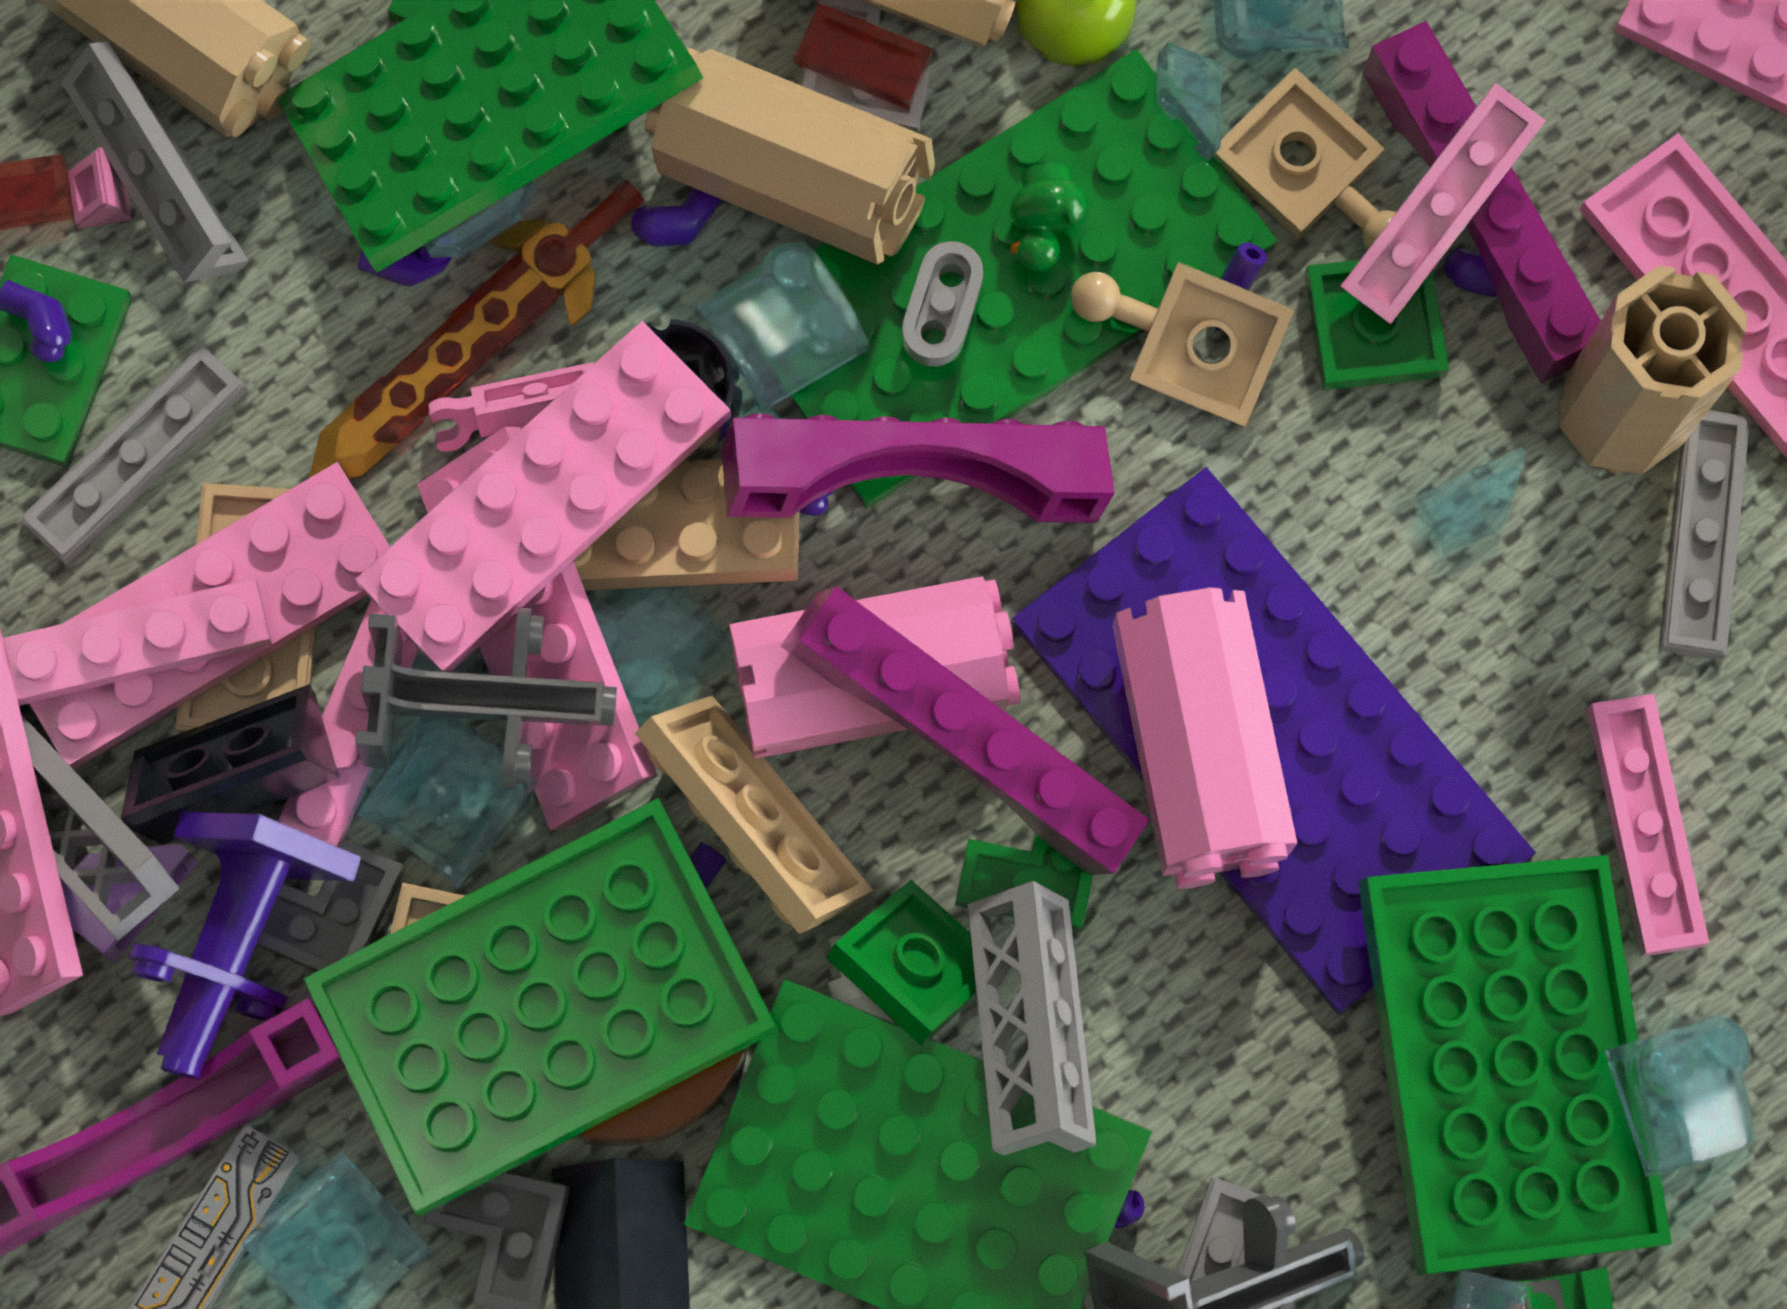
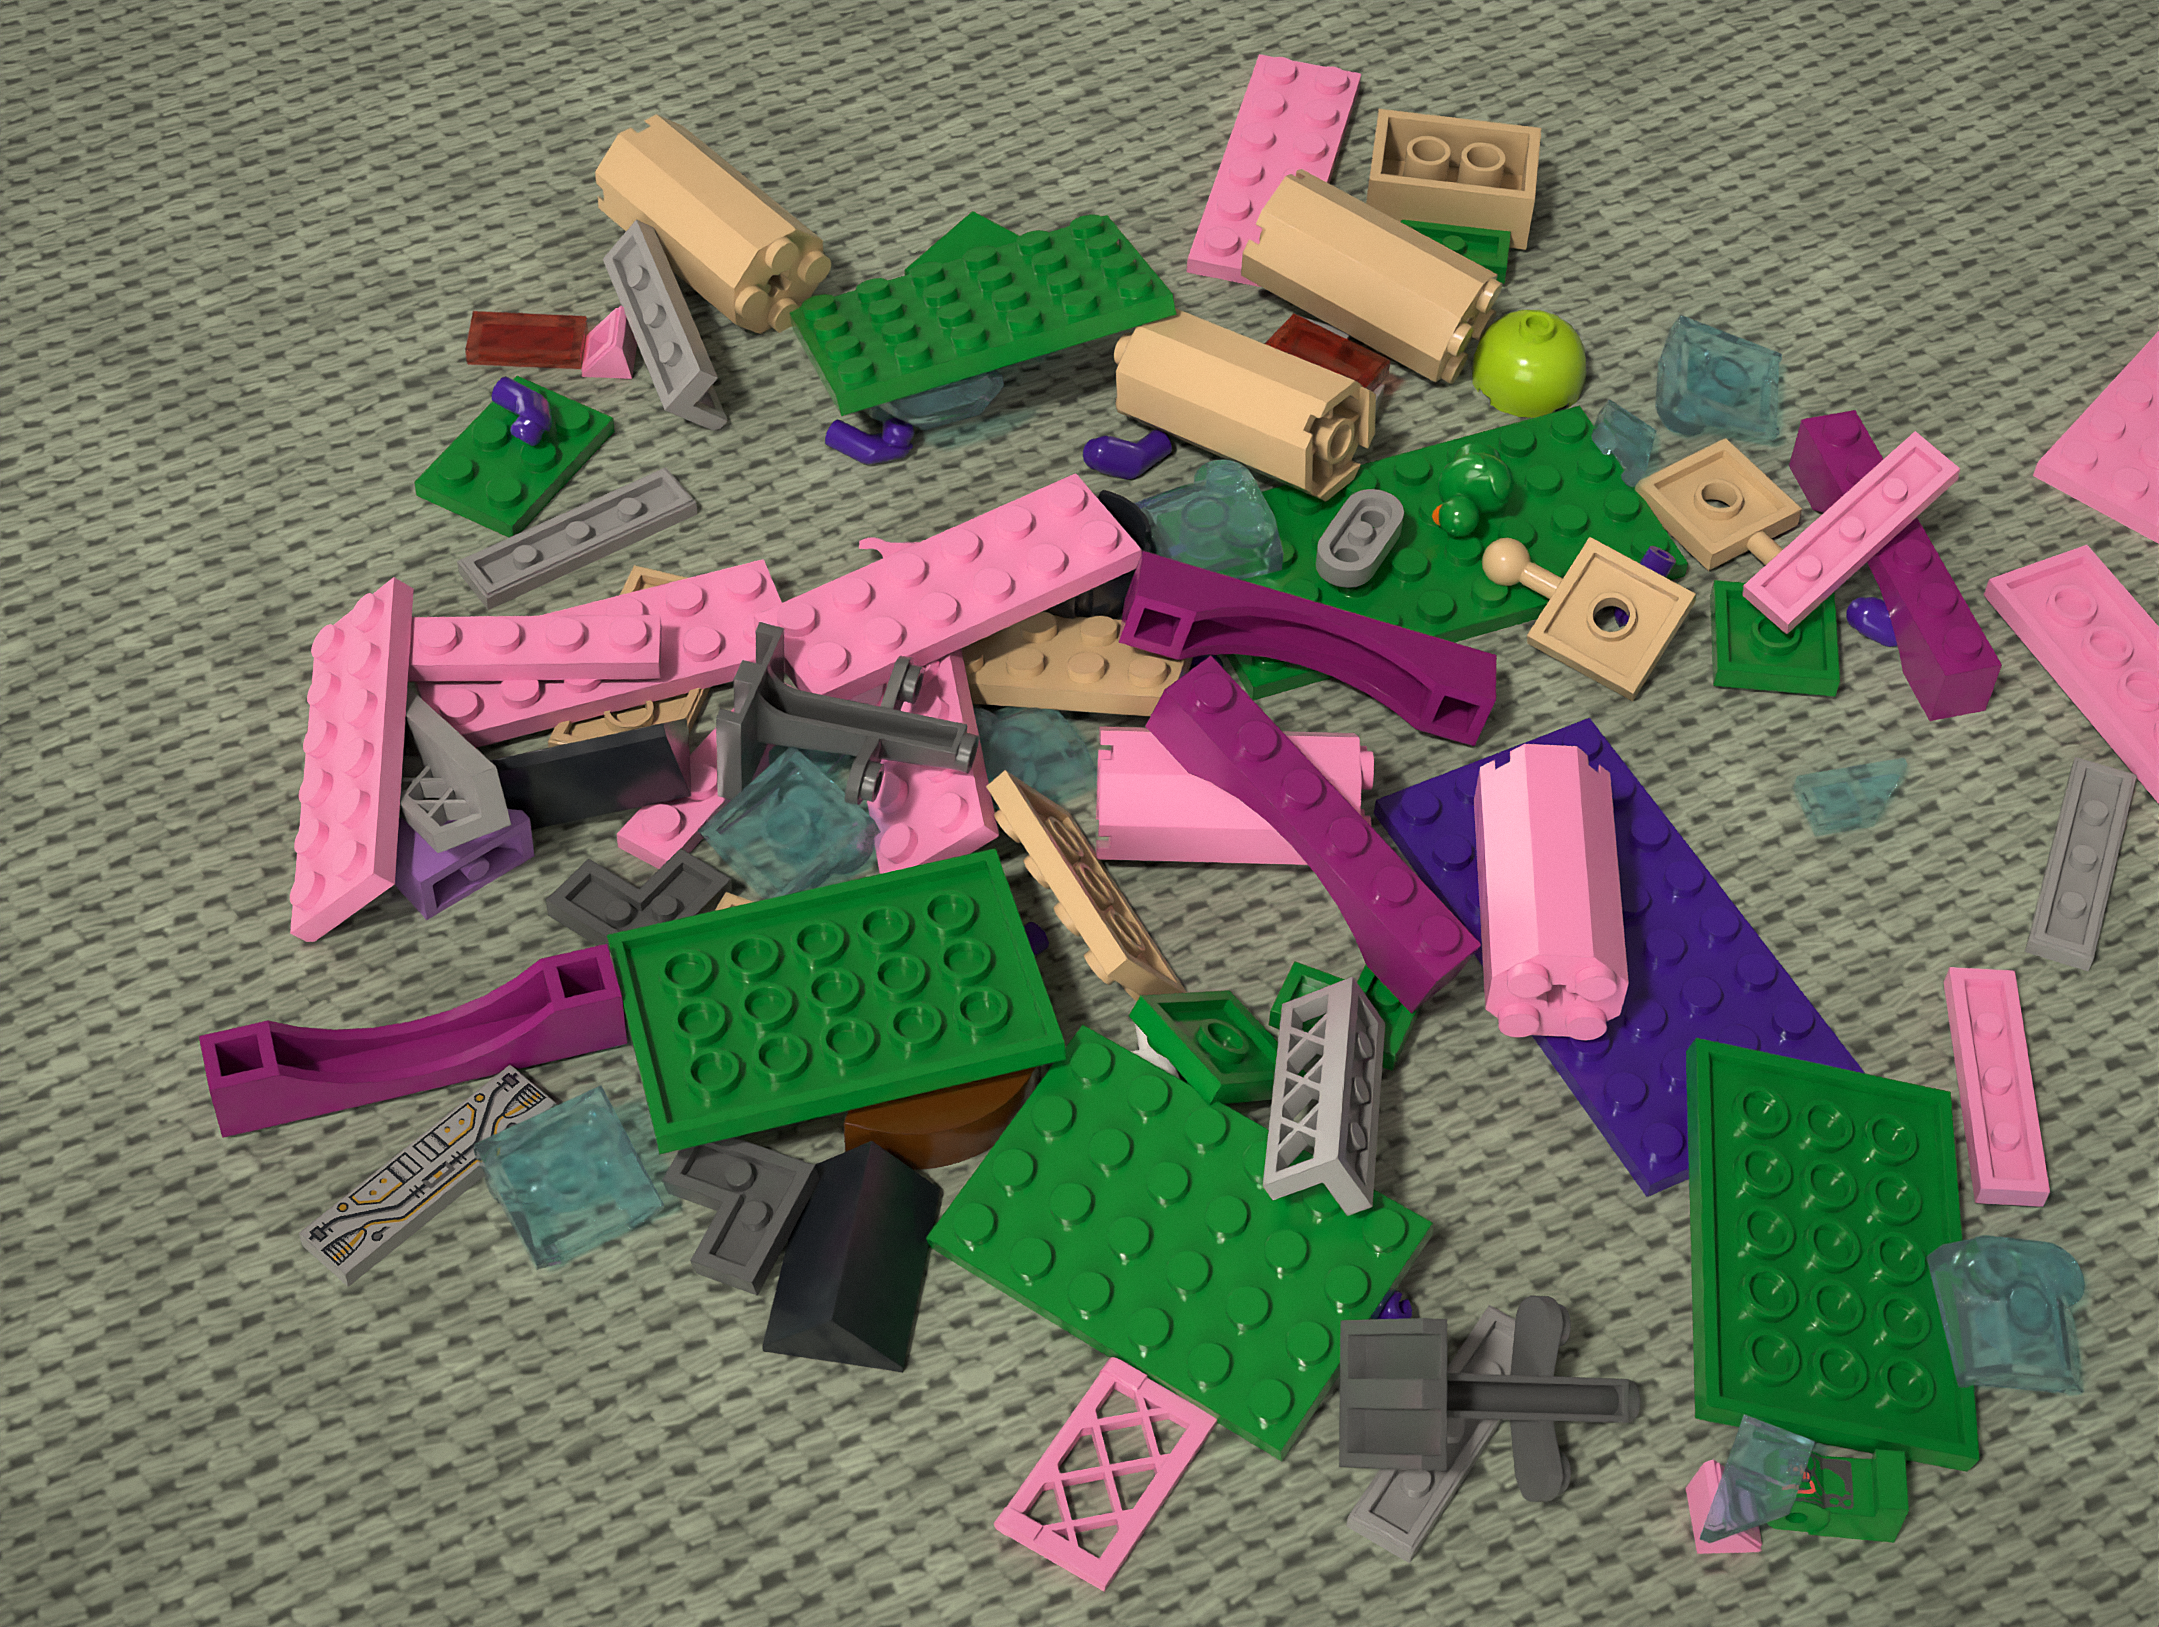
camera: 15 degrees right, 25 degrees down
(254, 862) = (597, 819): dark purple piece -> none
(479, 329) = (993, 464): sword -> none
(1652, 370) = (2041, 669): tan brick -> none

